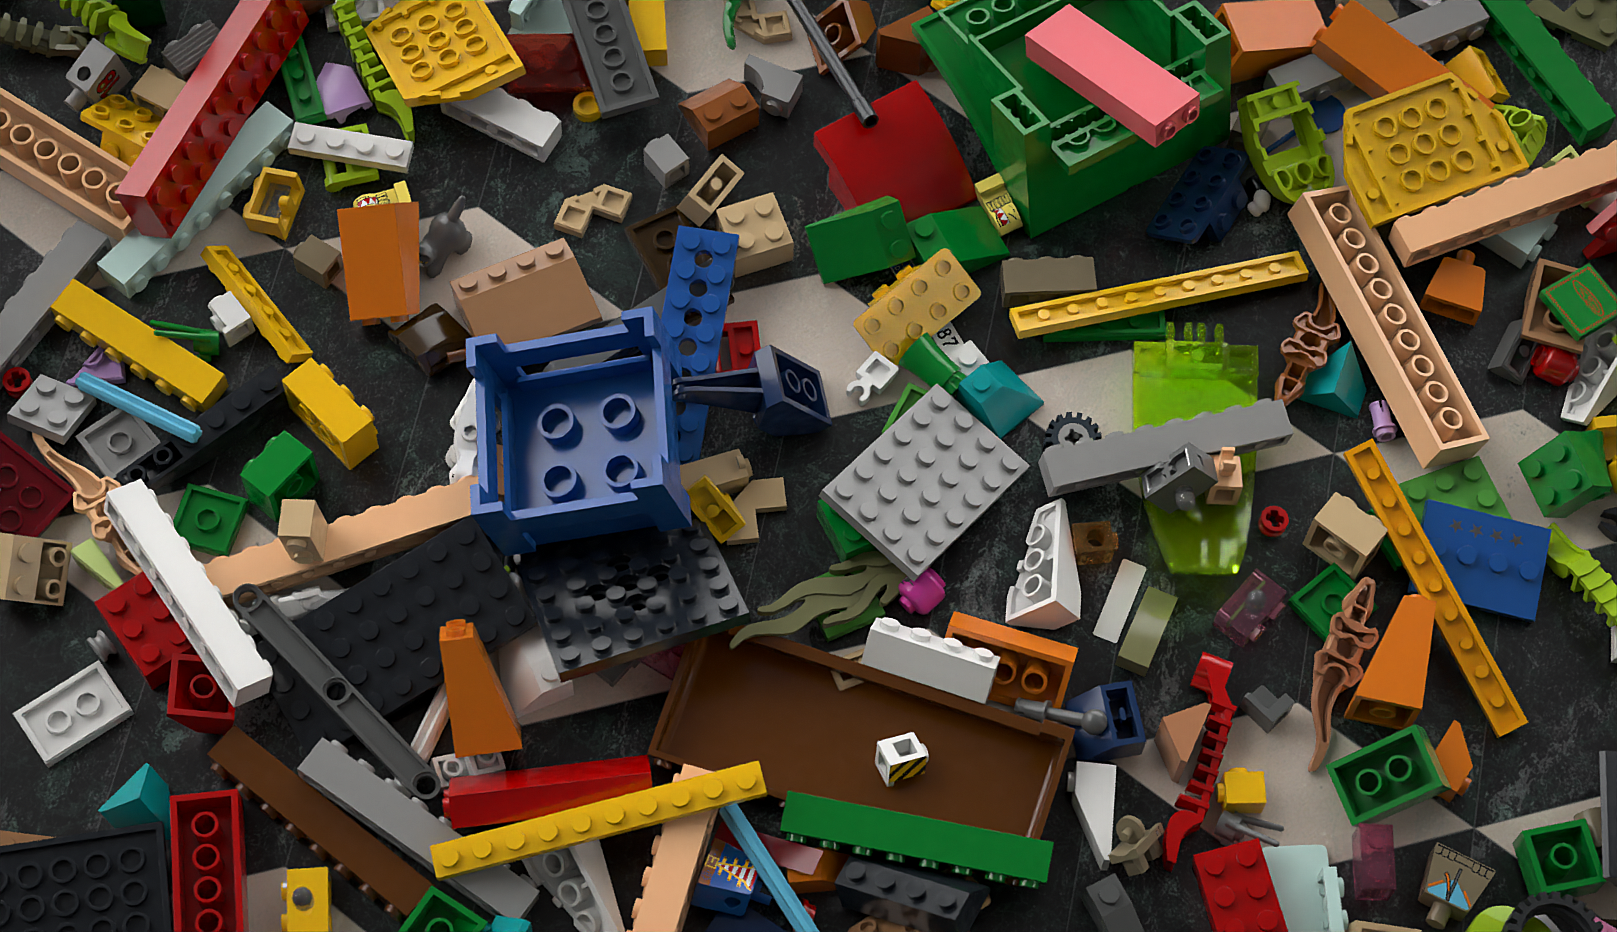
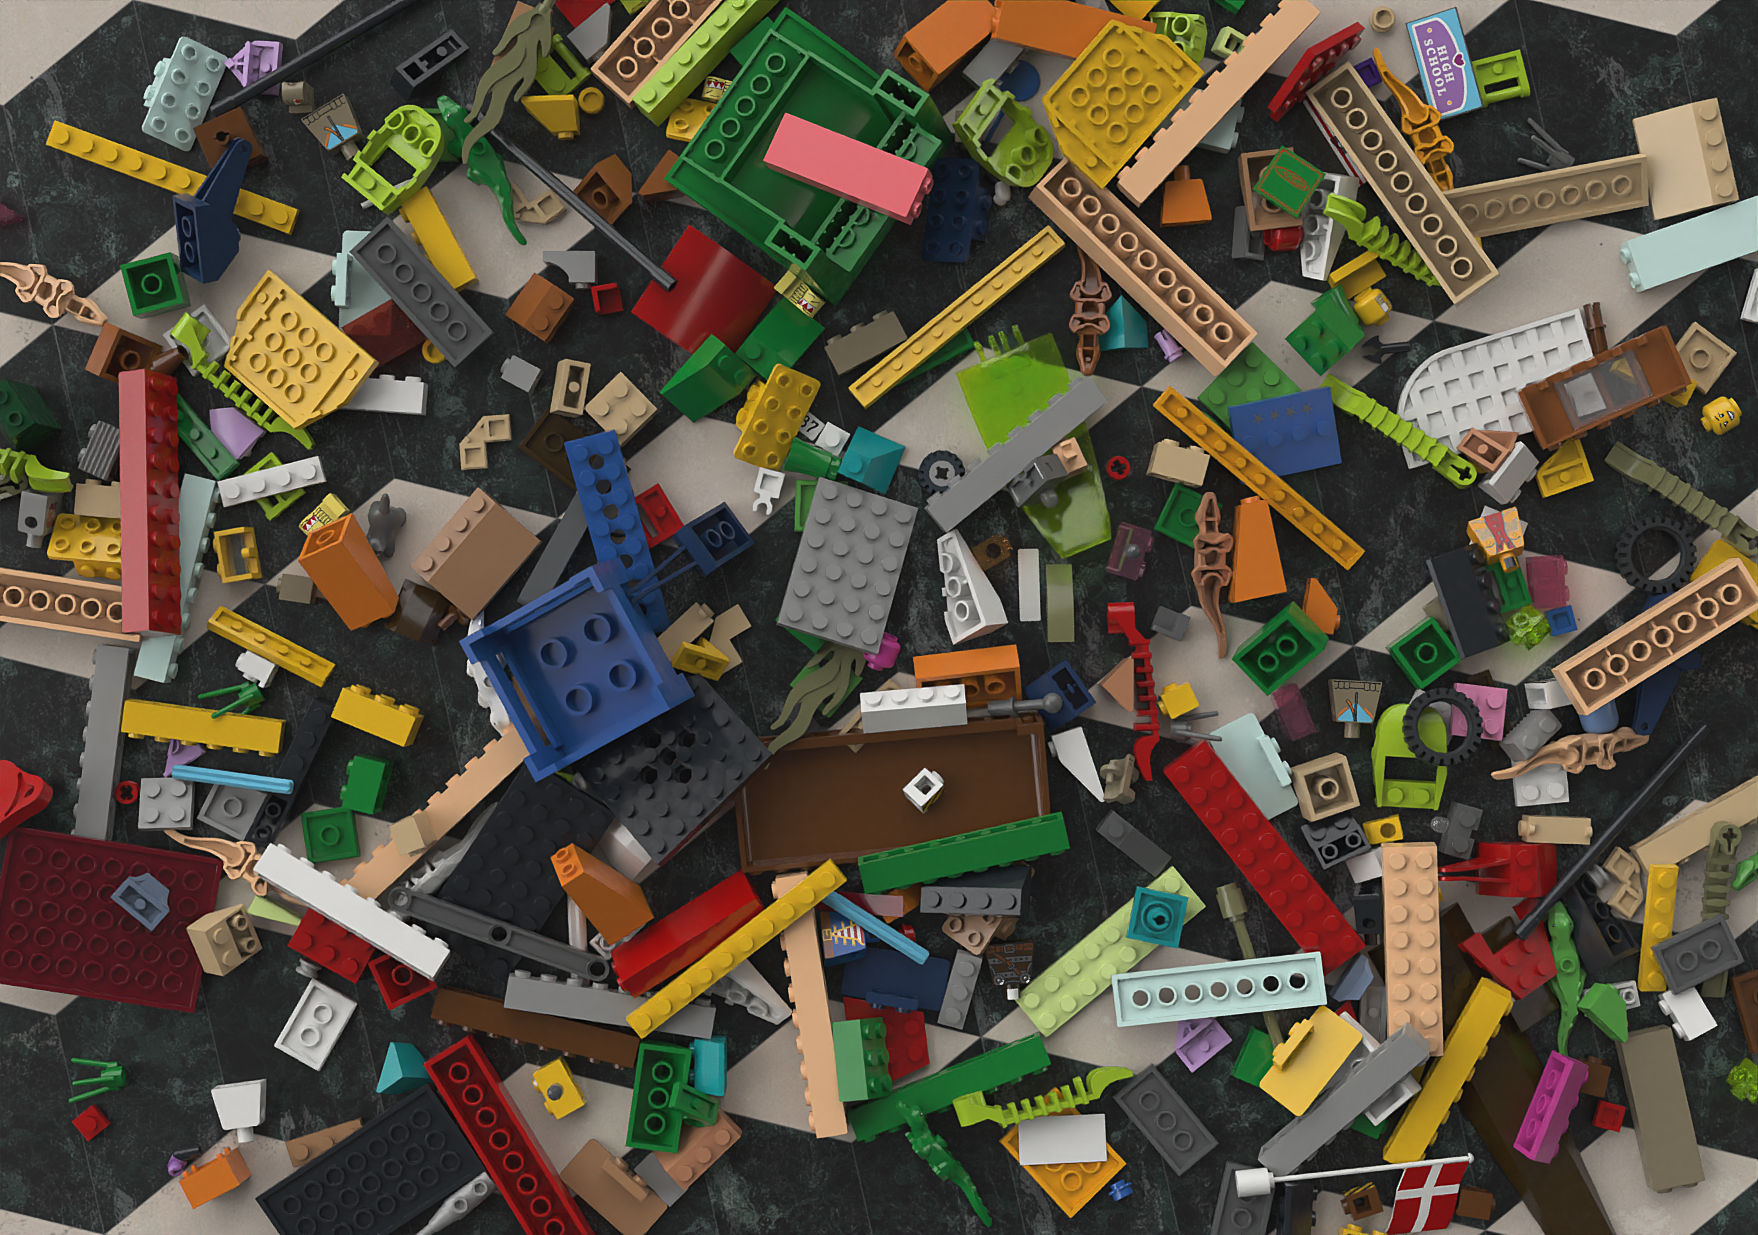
camera: 25 degrees left, 25 degrees up
(792, 128) = (607, 299): none -> red panel

